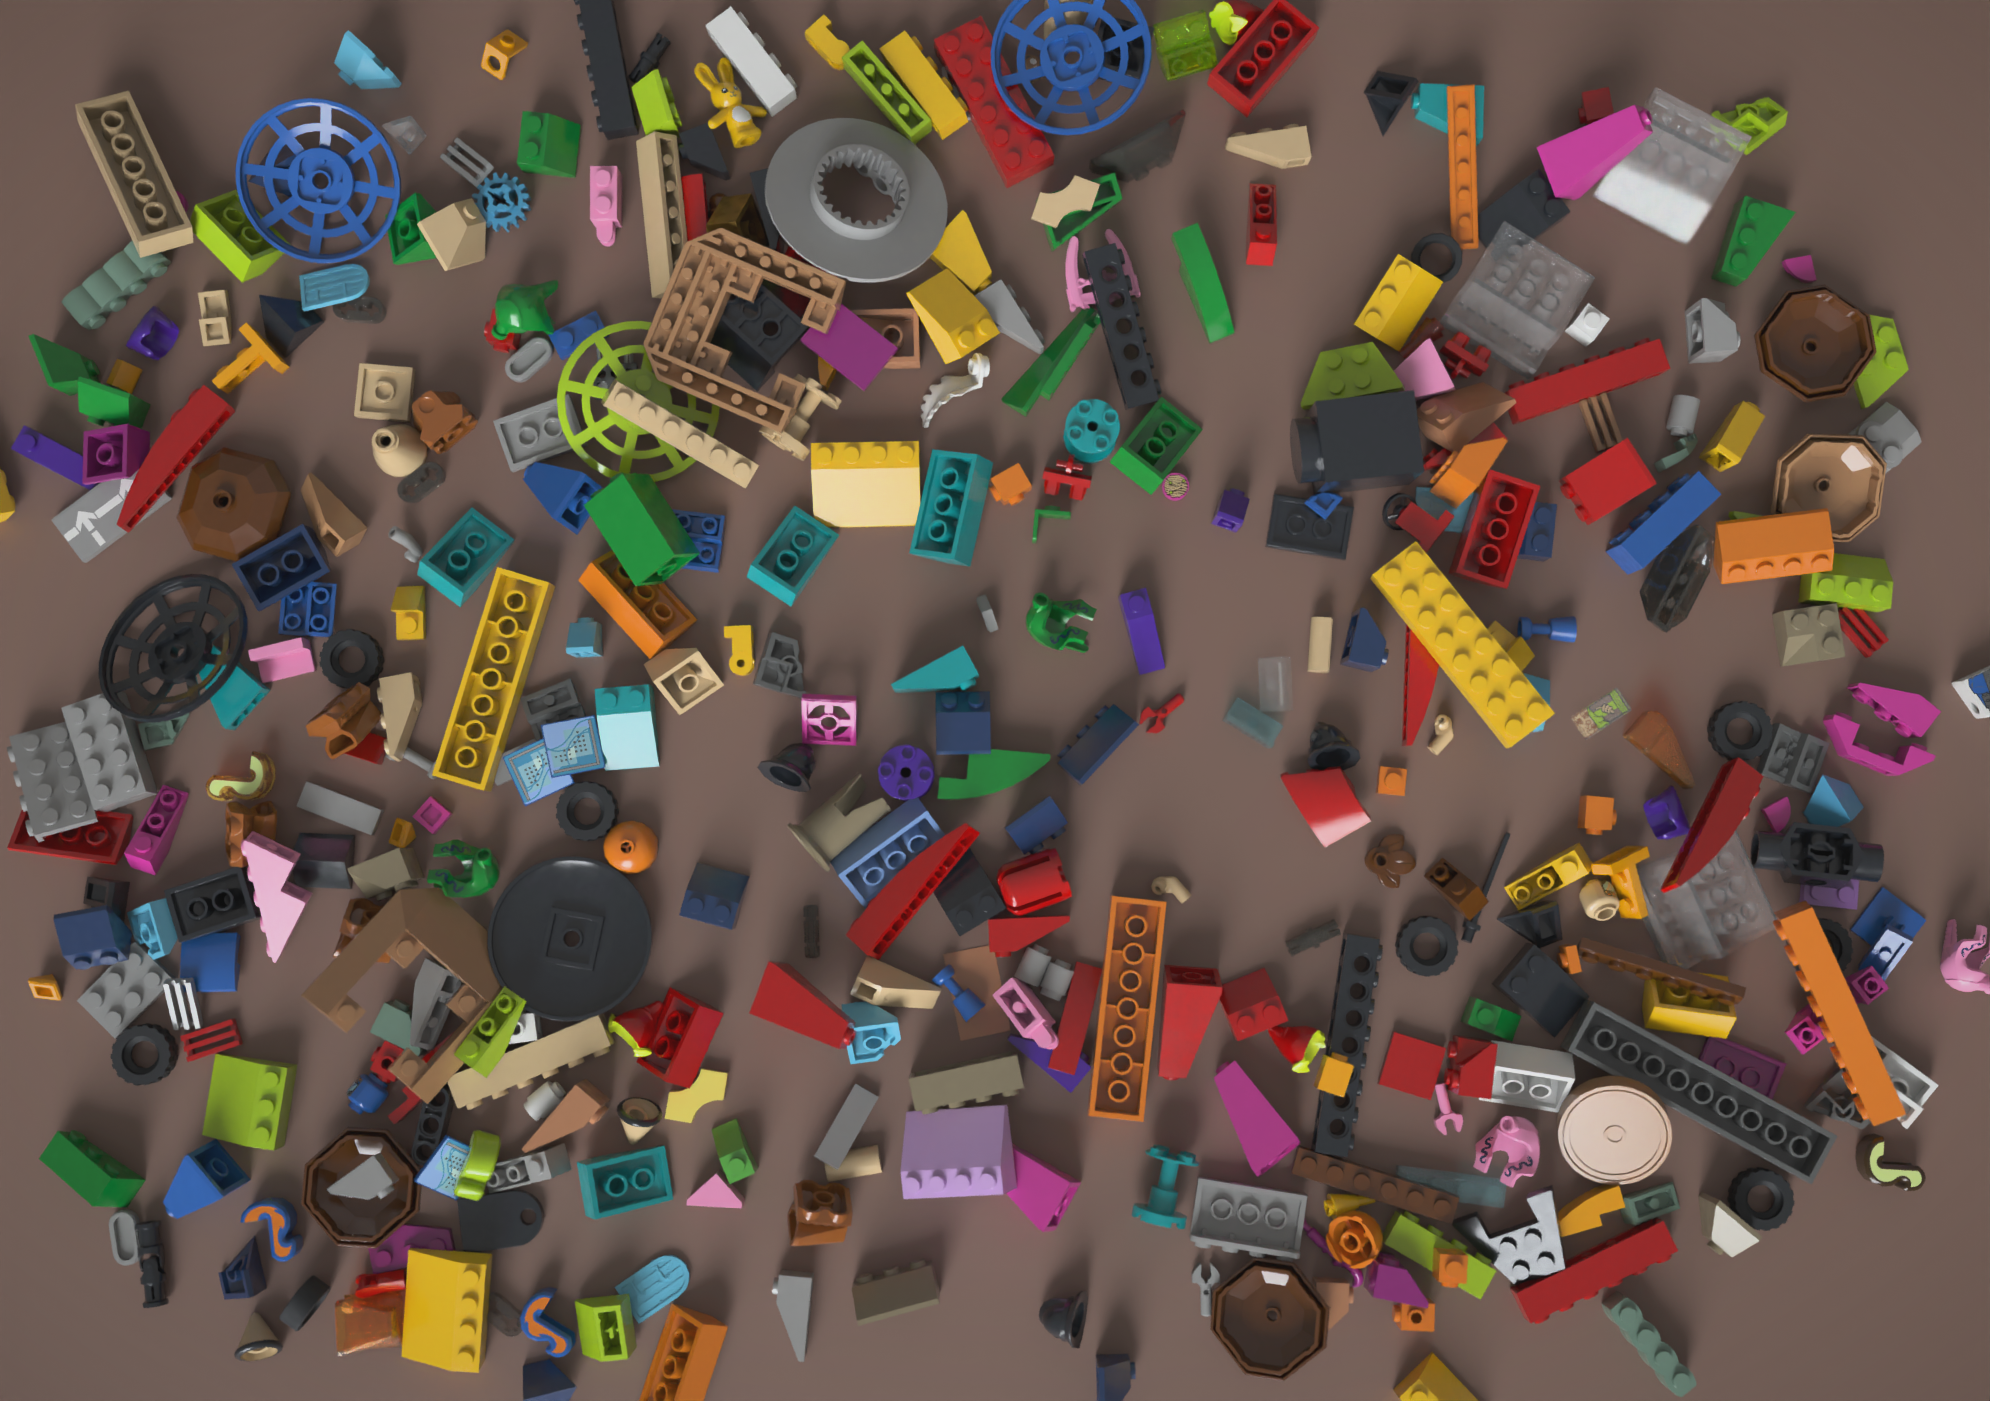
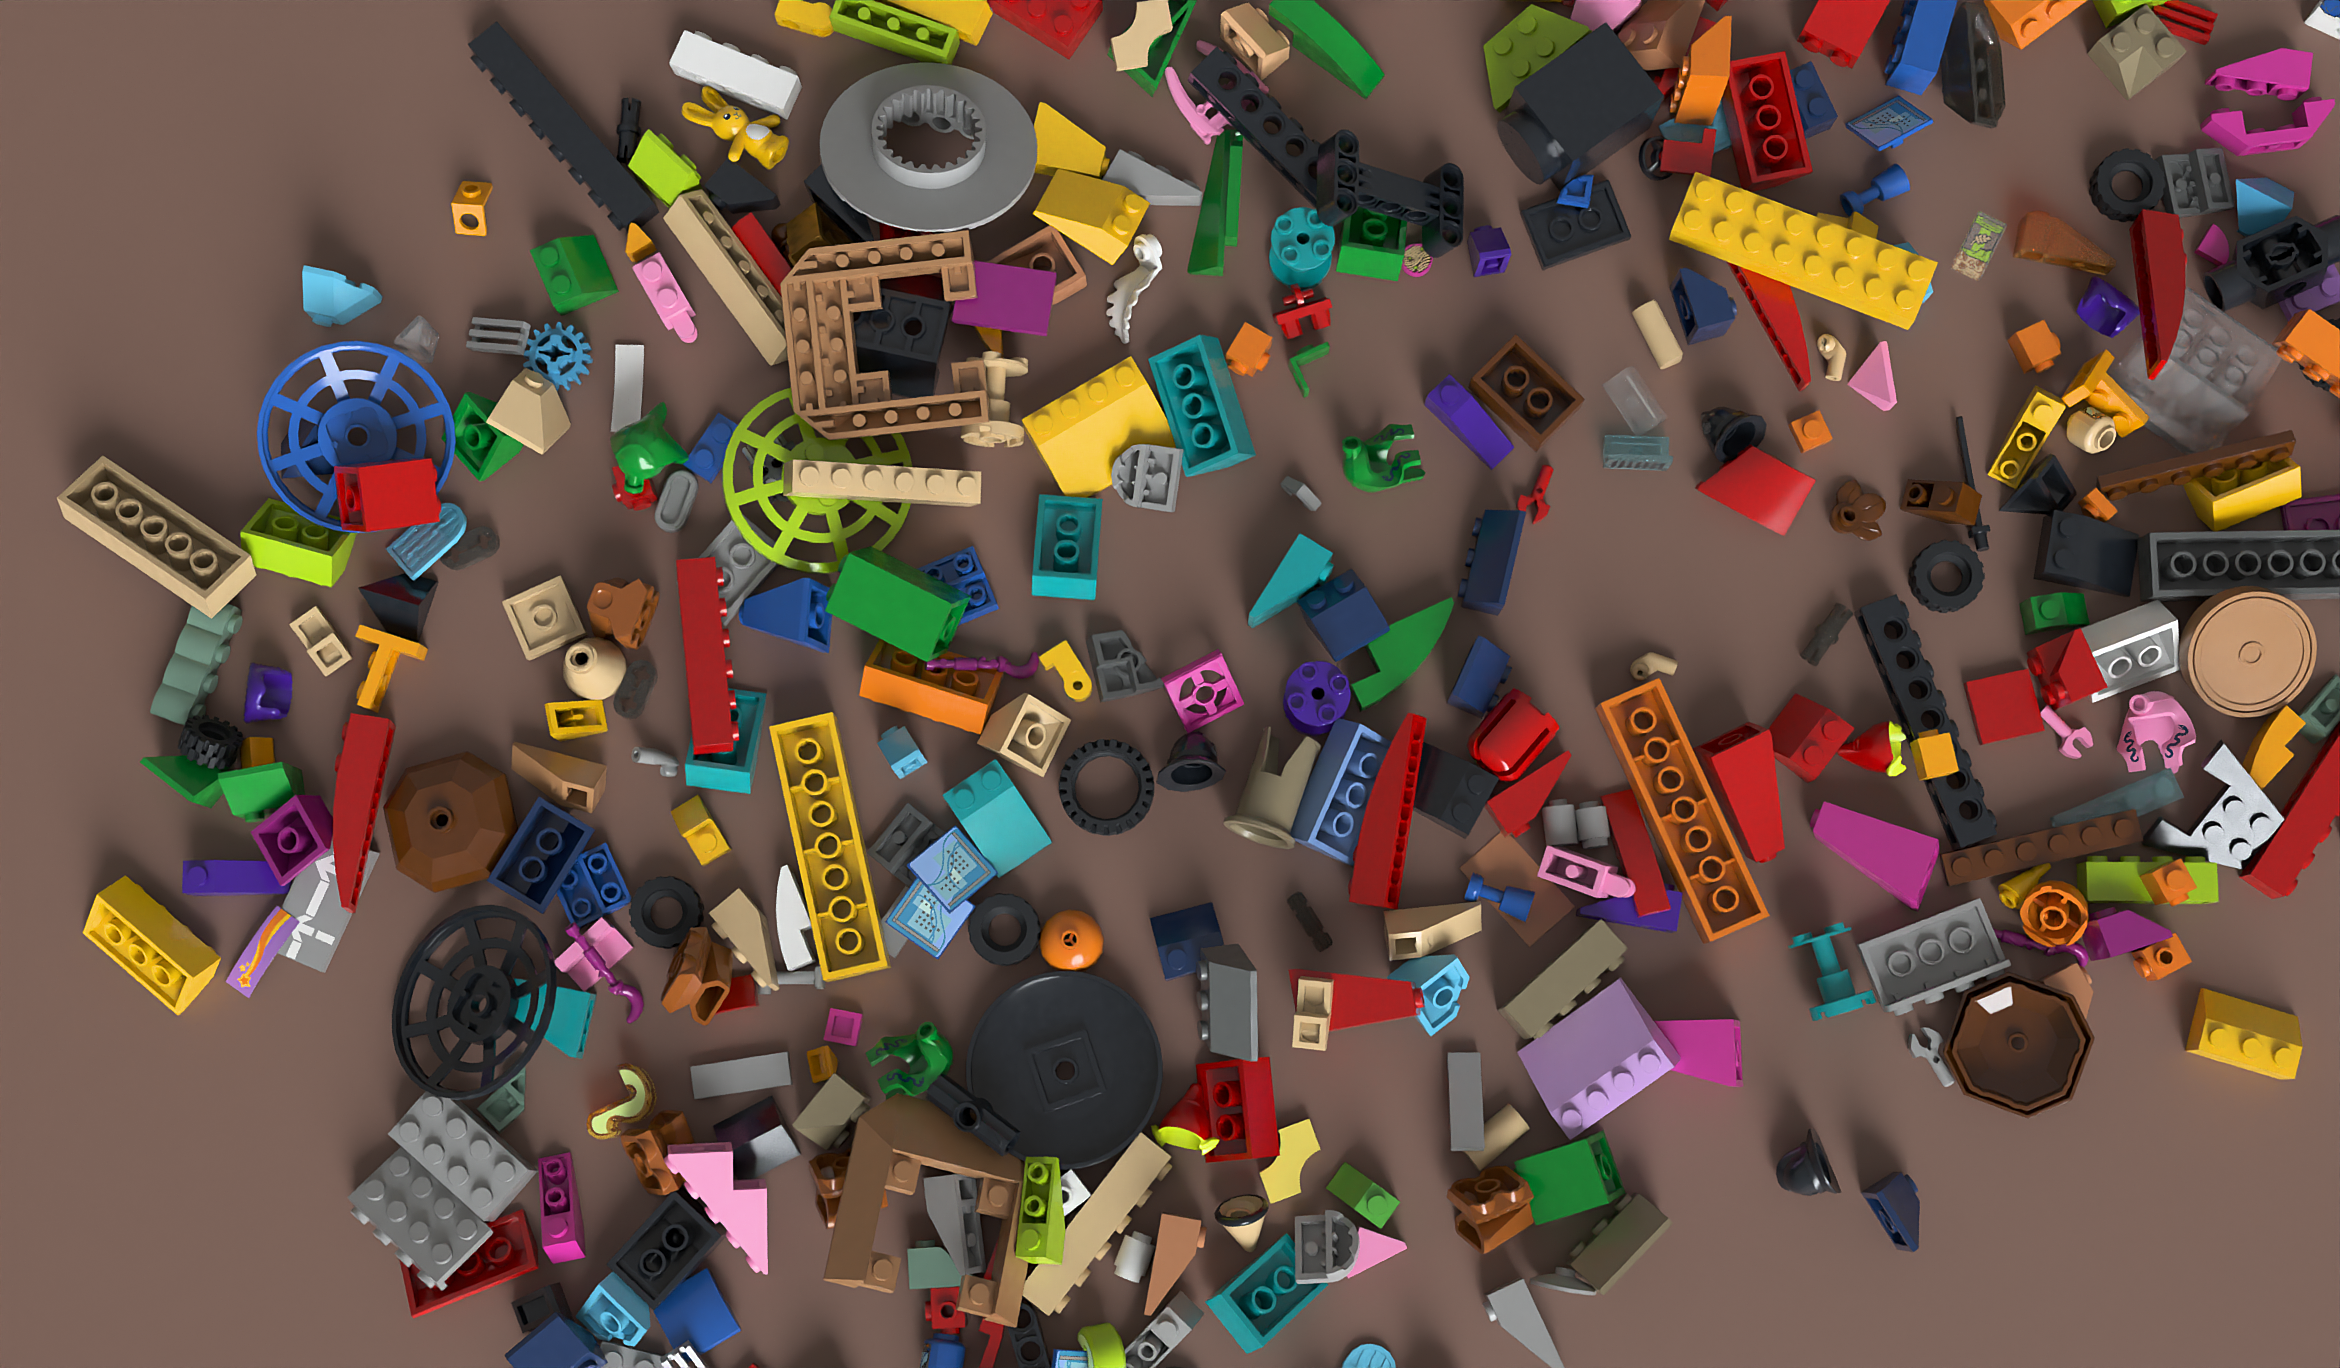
camera: 25 degrees left, 5 degrees down
(49, 521) = (261, 951): none -> medium lavender sticker
(92, 348) = (210, 741): none -> black tyre
(284, 693) = (616, 986): none -> magenta piece
(317, 237) = (387, 494): none -> red slope
(364, 480) = (575, 719): none -> yellow slope
(436, 717) = (792, 921): none -> white slope
(480, 487) = (705, 655): none -> red brick
(487, 947) = (989, 1125): none -> black piece
(541, 253) = (627, 386): none -> white sticker
(607, 150) = (638, 244): none -> light orange slope
(683, 1173) = (1324, 1247): none -> light grey slope
(690, 736) = (1118, 750): none -> black tyre
(696, 615) = (1000, 663): none -> magenta piece
(712, 958) = (1228, 1002): none -> dark grey slope
(766, 1004) = (1313, 1013): none -> tan slope
(837, 1297) = (1563, 1280): none -> light grey dish
(881, 537) = (1148, 476): none -> light grey slope
(890, 1225) = (1571, 1177): none -> green slope
(1151, 251) = (1253, 39): none -> light nougat slope
(1195, 633) = (1525, 393): none -> reddish brown brick
(1209, 453) = (1349, 184): none -> black beam
(1462, 769) = (1875, 378): none -> bright pink slope
(1588, 583) = (1889, 123): none -> piece

